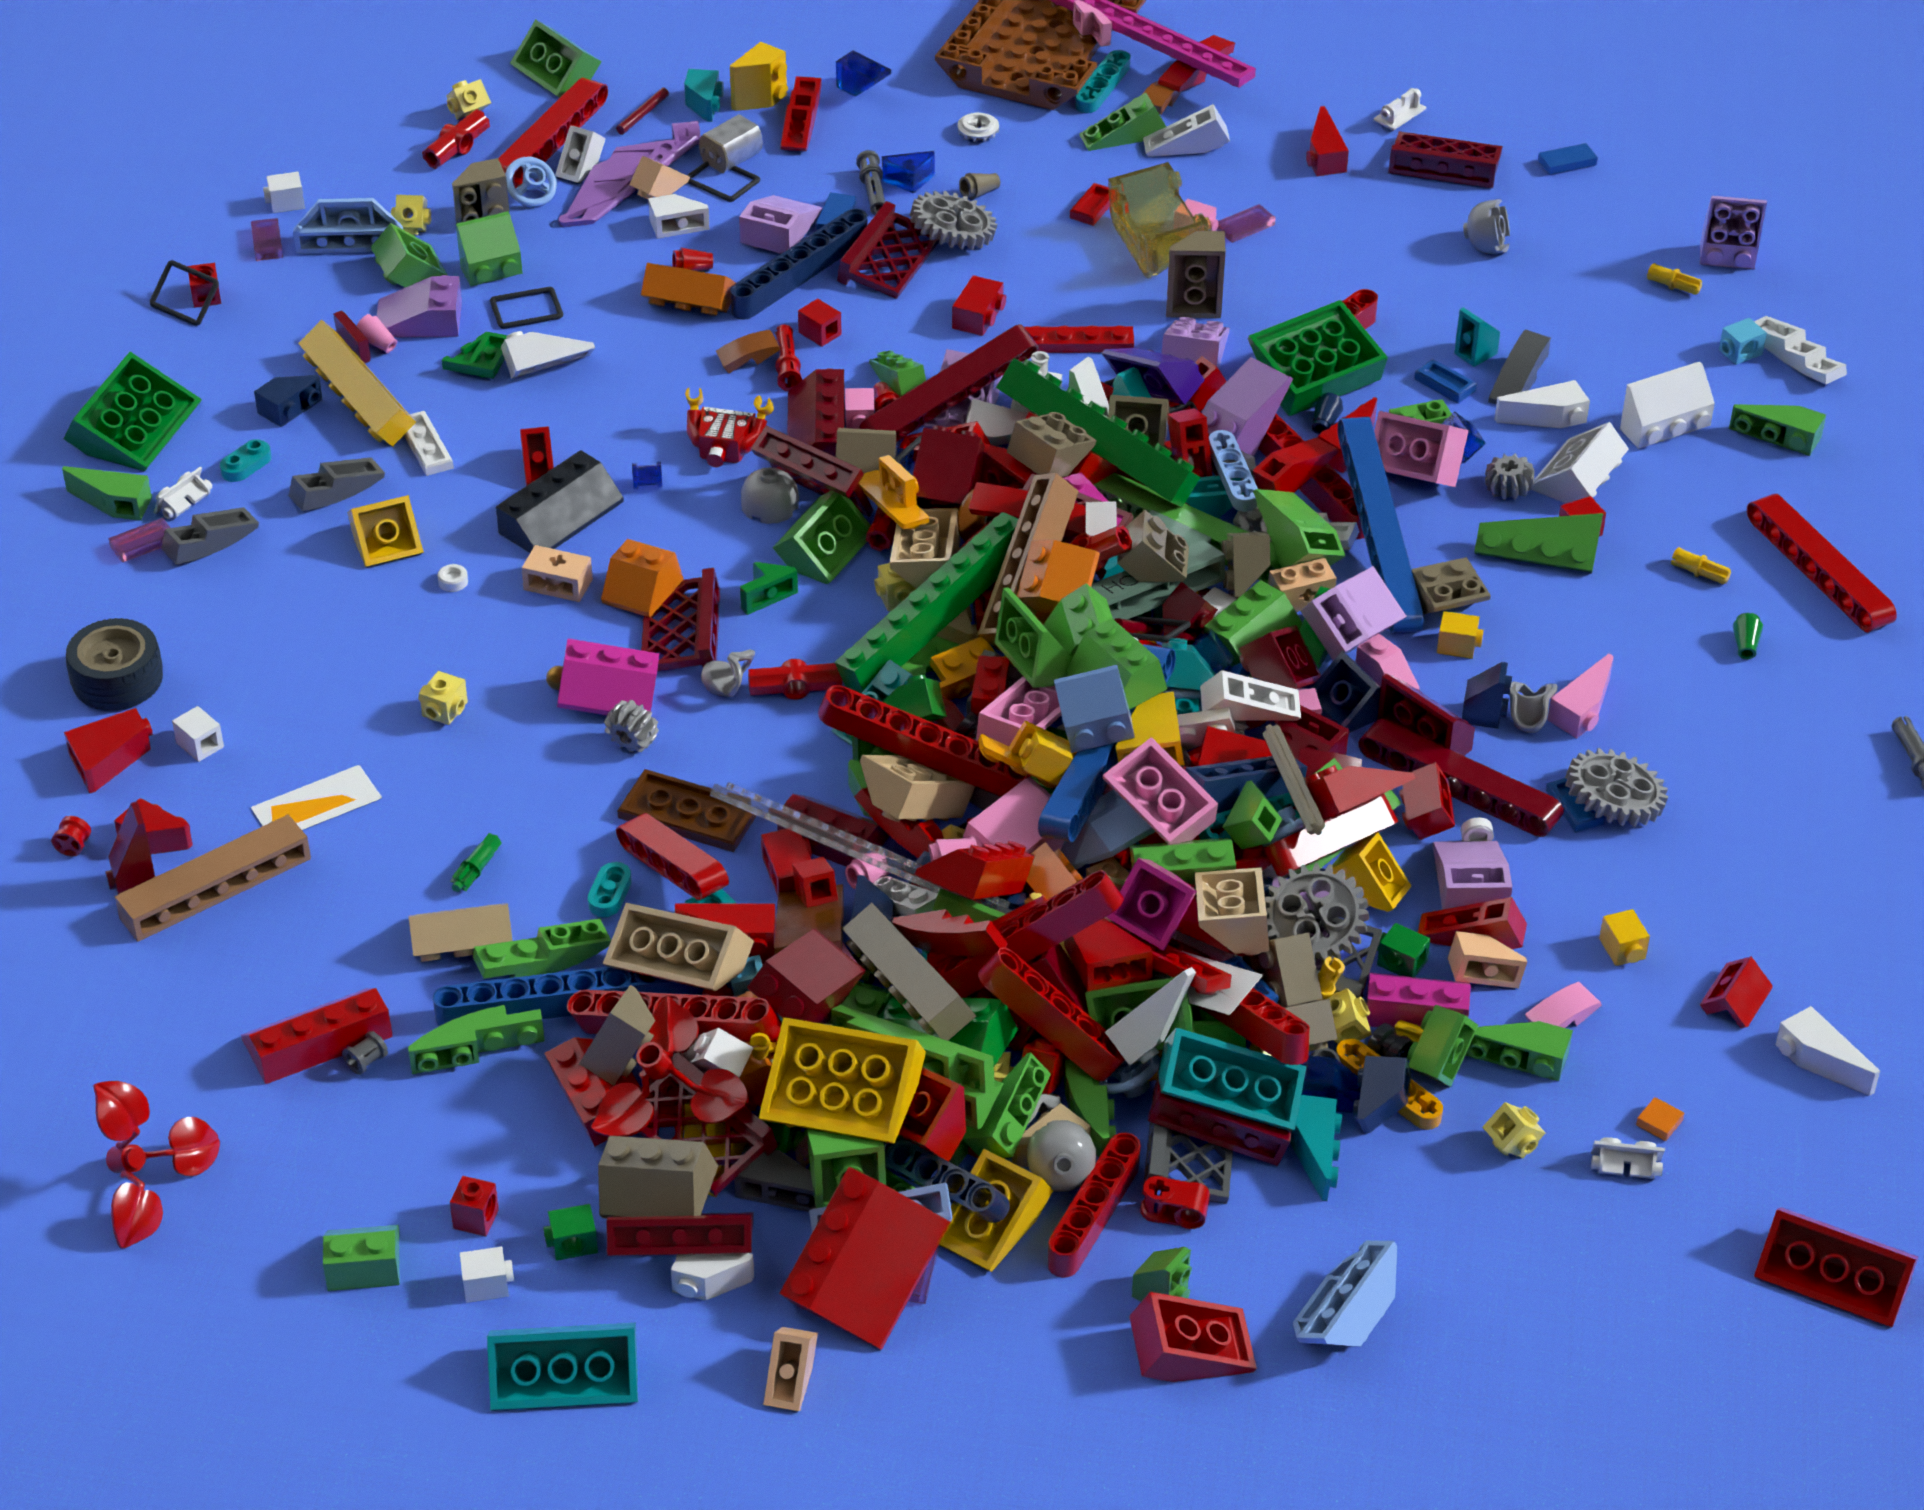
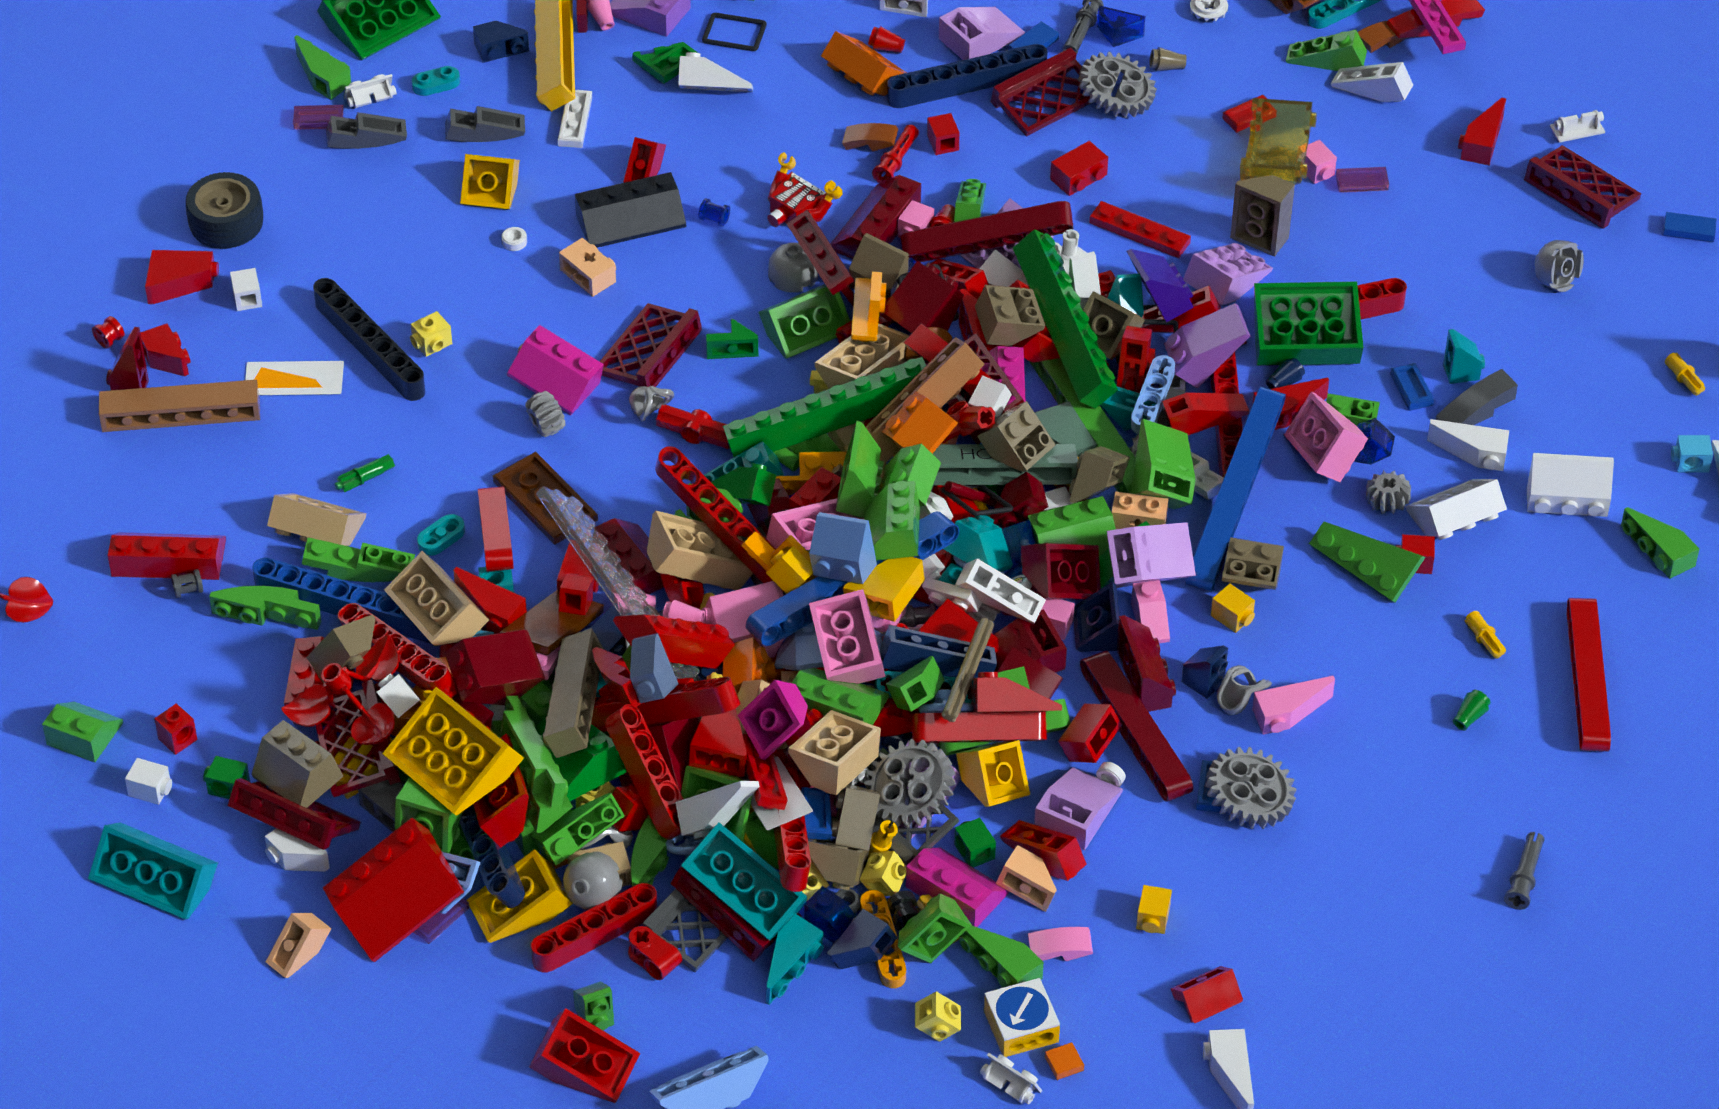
camera: 30 degrees right, 5 degrees up
(376, 730) = (369, 339): none -> black beam
(640, 578) = (641, 296): orange slope -> none
(1002, 901) = (651, 669): none -> sand blue slope
(1589, 1094) = (1021, 1017): none -> piece

